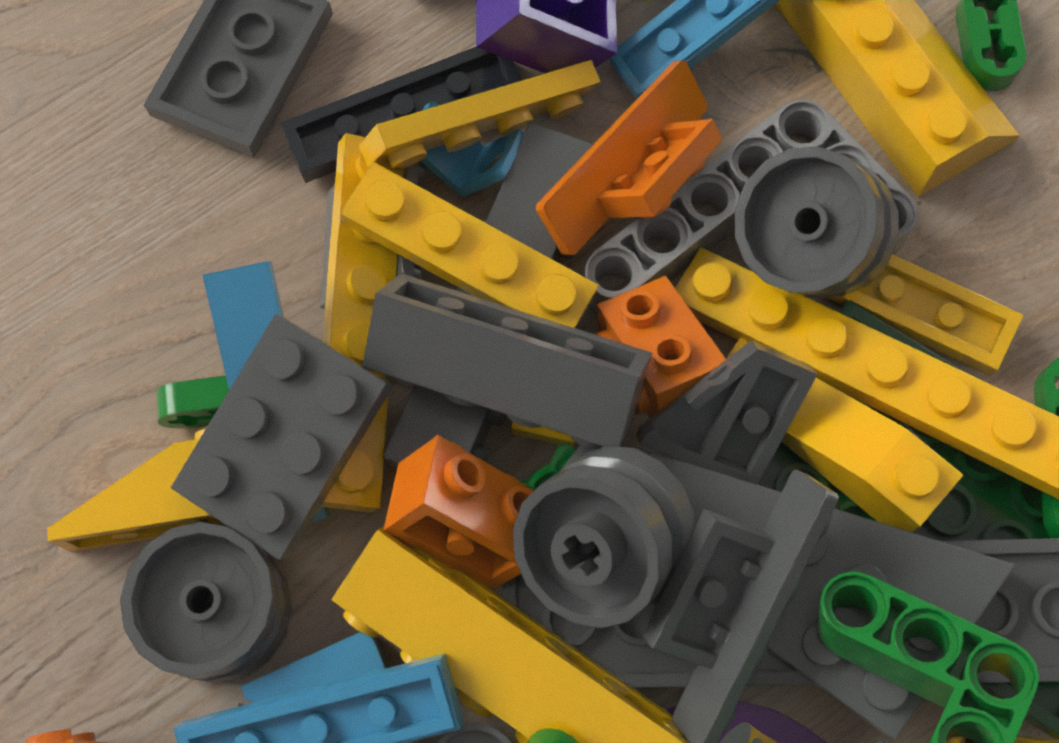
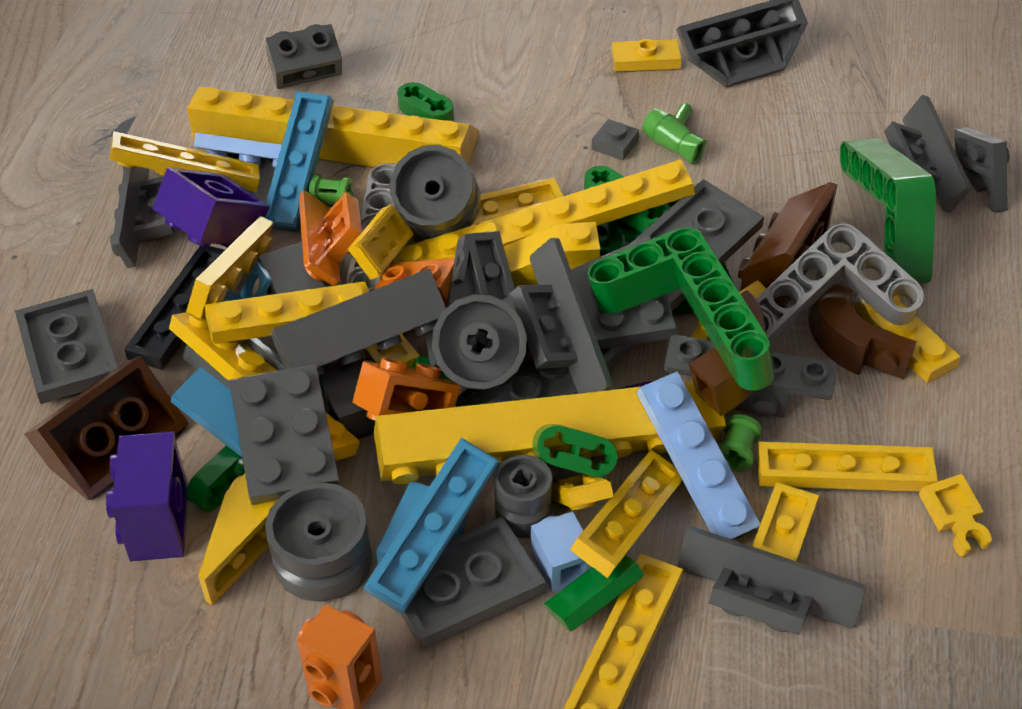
camera: 50 degrees left, 25 degrees down
(97, 370) = (148, 496): none -> dark purple brick
(164, 216) = (87, 429): none -> reddish brown slope
(672, 242) = (380, 241): none -> yellow plate
(728, 83) = (319, 187): none -> bright green bush

